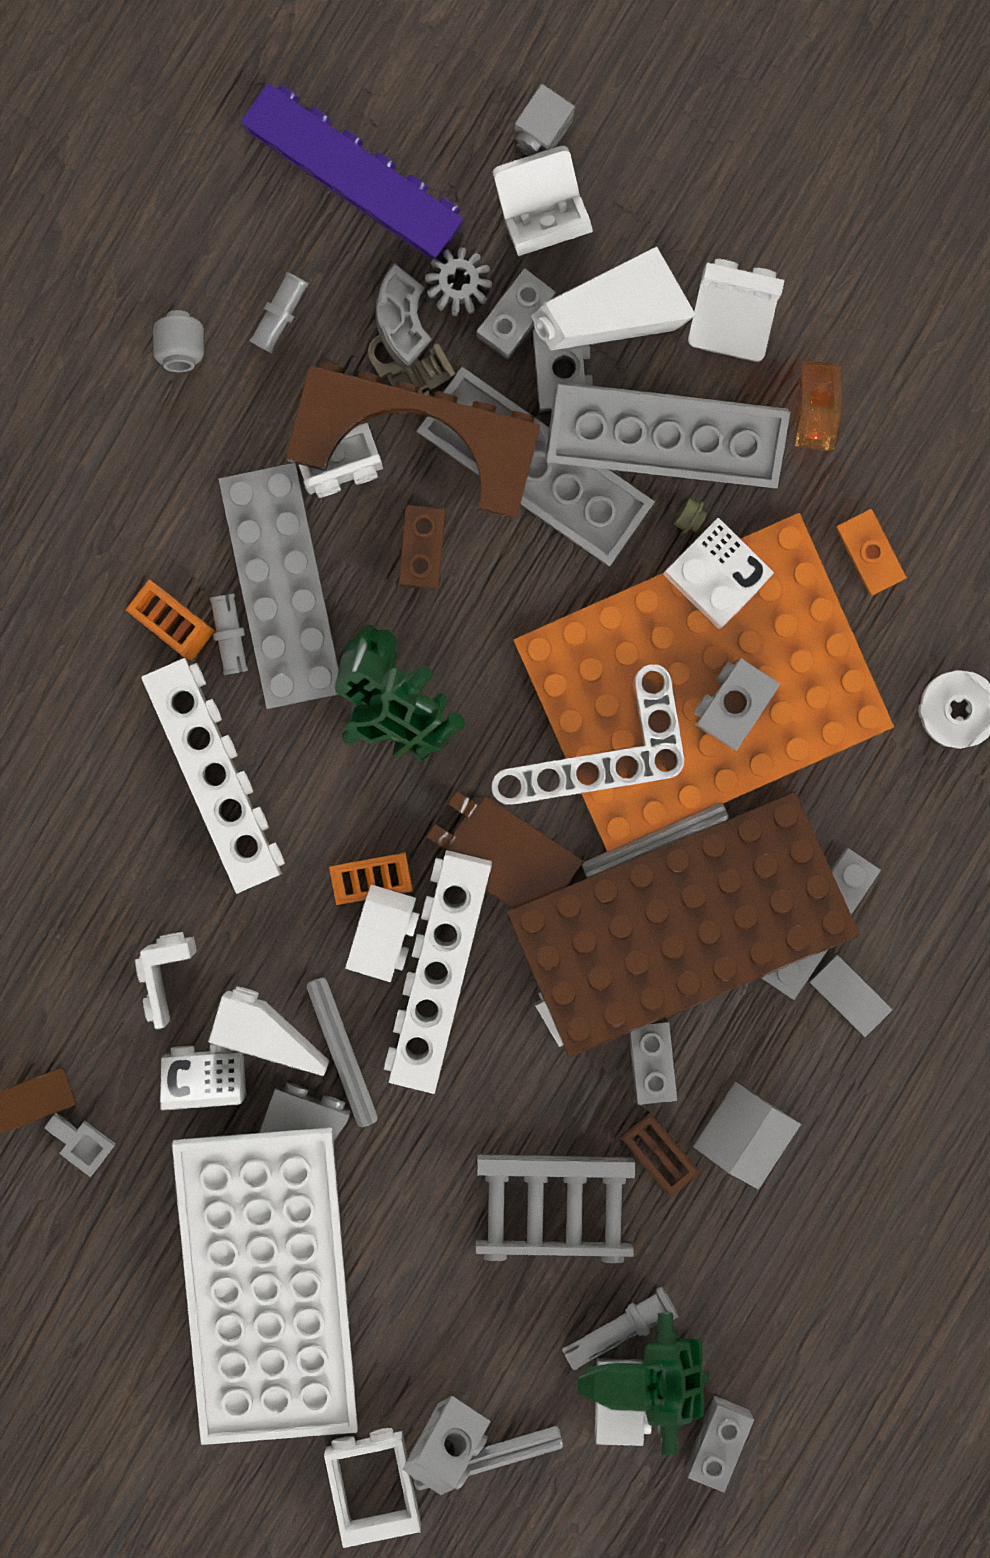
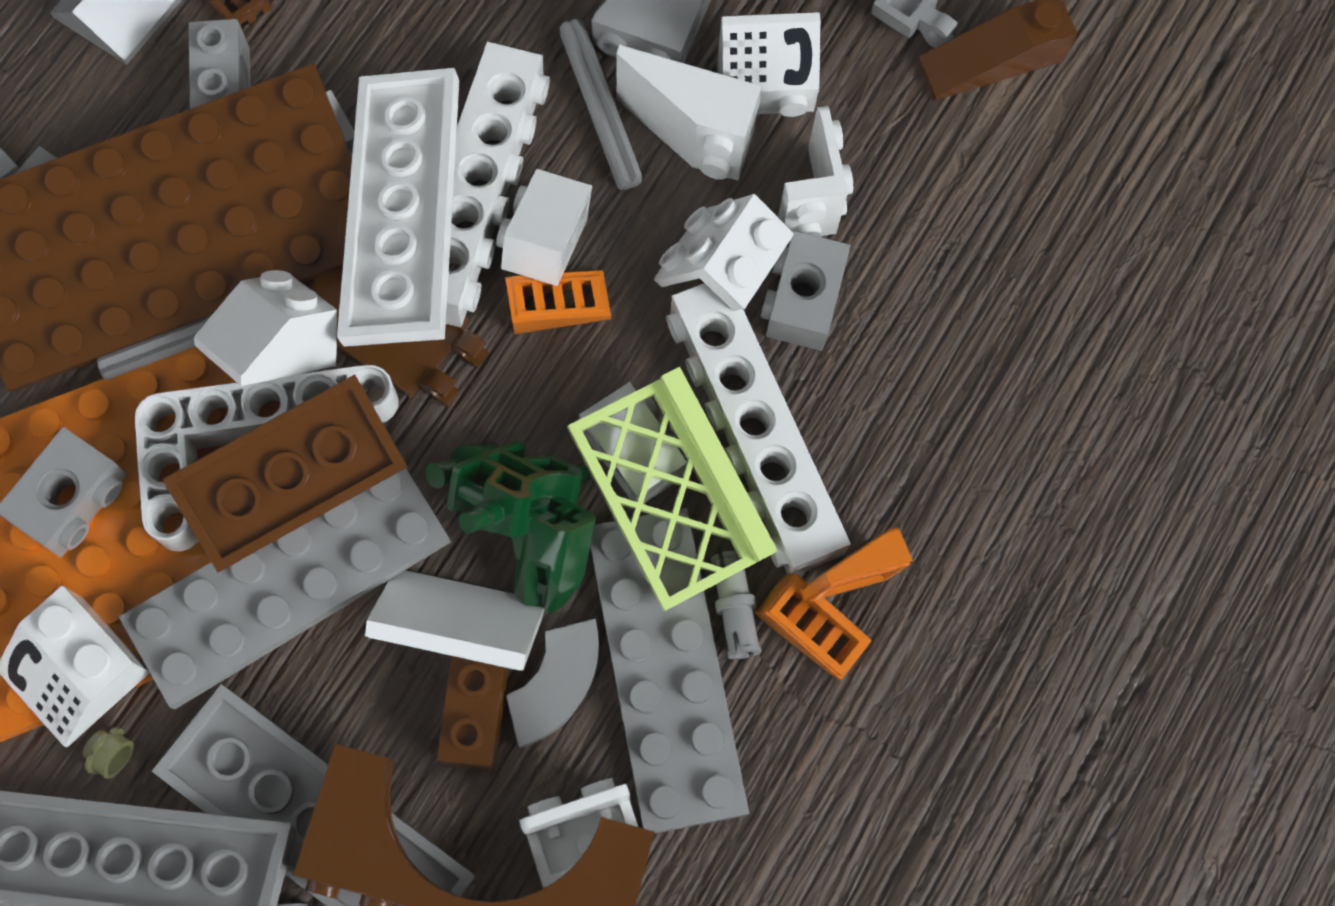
camera: 175 degrees right, 15 degrees down
(126, 666) = (867, 566): none -> orange slope
(157, 906) = (800, 318): none -> light grey brick
(238, 914) = (727, 249): none -> white bracket
(246, 730) = (712, 468): none -> yellowish green fence
(307, 757) = (635, 447): none -> white brick
(360, 573) = (558, 685): none -> light grey tile
(437, 615) = (455, 619): none -> white tile
(493, 936) = (399, 209): none -> white plate
(565, 715) = (285, 473): none -> reddish brown plate
(566, 643) = (231, 618): none -> light grey plate
(589, 831) = (270, 330): none -> white slope

